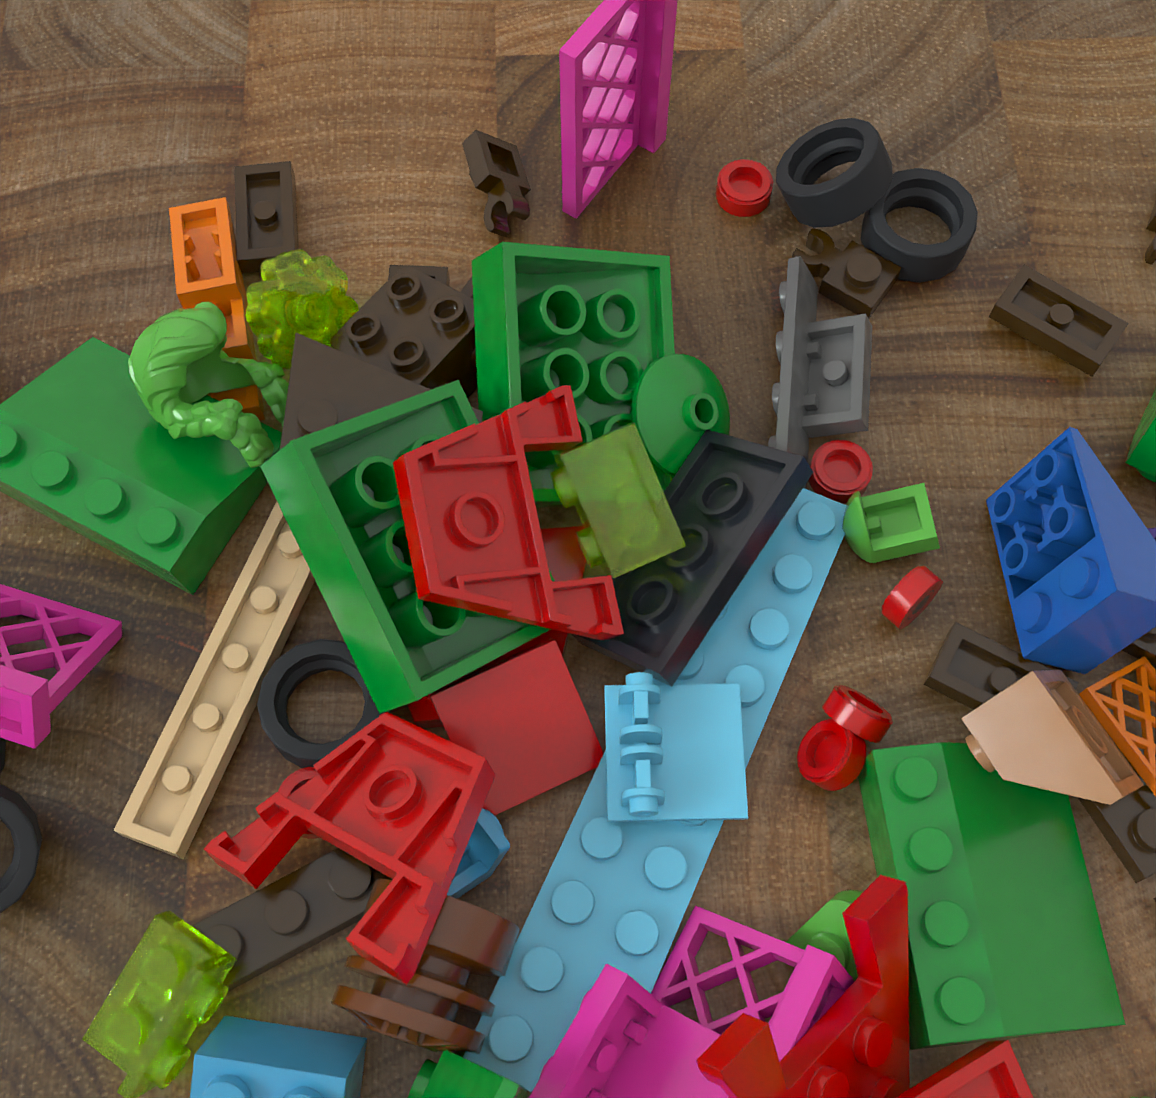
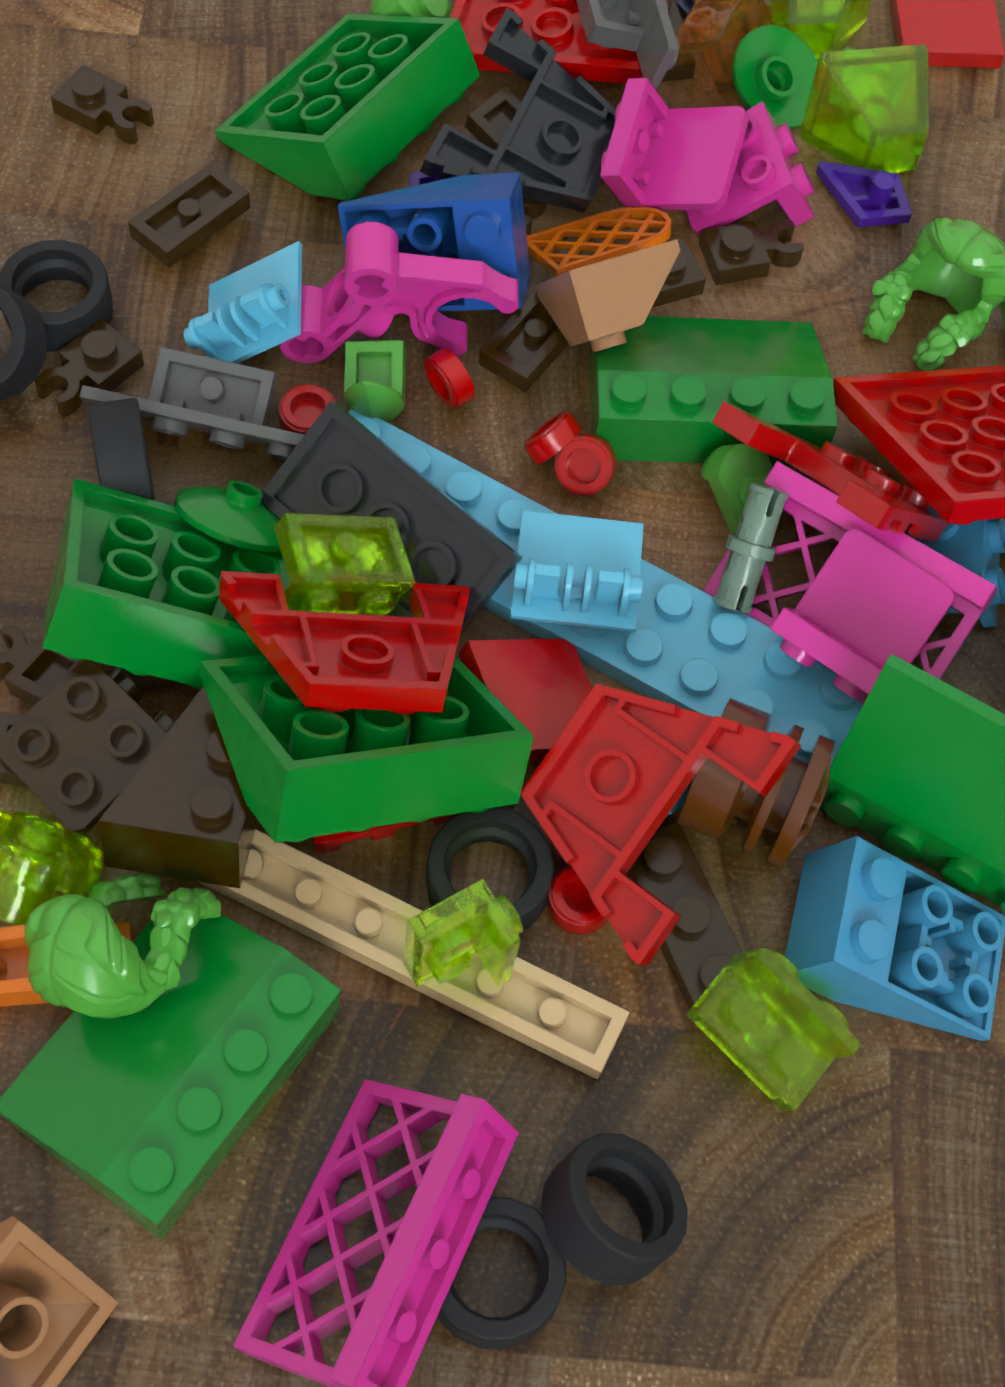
camera: 90 degrees left, 5 degrees down
(212, 683) = (467, 923): none -> clear neon green bracket
(724, 303) = (121, 447): none -> black tyre
(729, 941) = (750, 547): none -> sand green pin
(938, 394) = (251, 309): none -> medium azure hinge
(979, 485) = (386, 283): none -> dark pink piece

